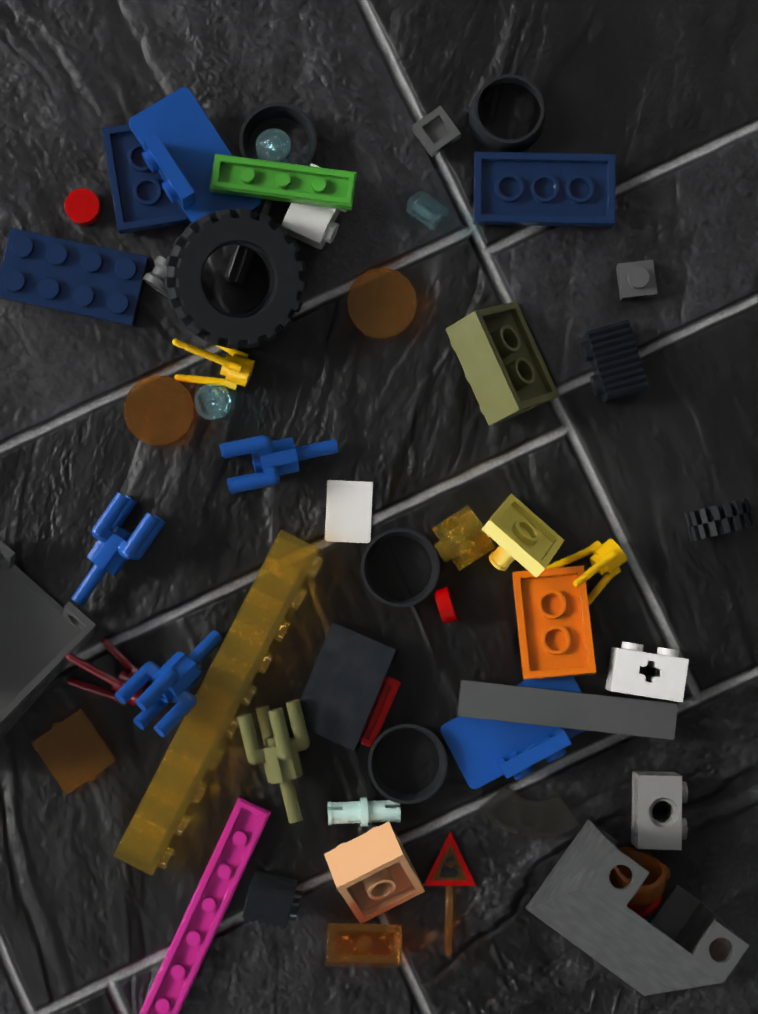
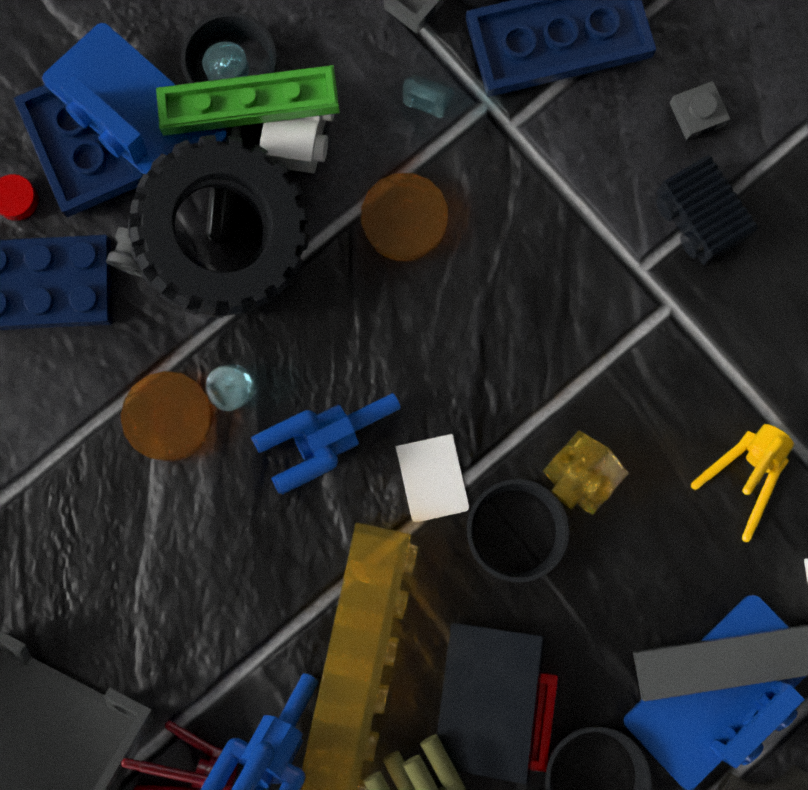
camera: 10 degrees left, 5 degrees down
(116, 544) = (152, 596): blue plant -> none
(235, 367) = (246, 339): yellow plant -> none
(446, 605) = (587, 562): red tile -> none
(501, 362) = (568, 247): olive slope -> none
(521, 537) = (658, 452): light yellow tile -> none
(553, 624) = (728, 549): orange plate -> none

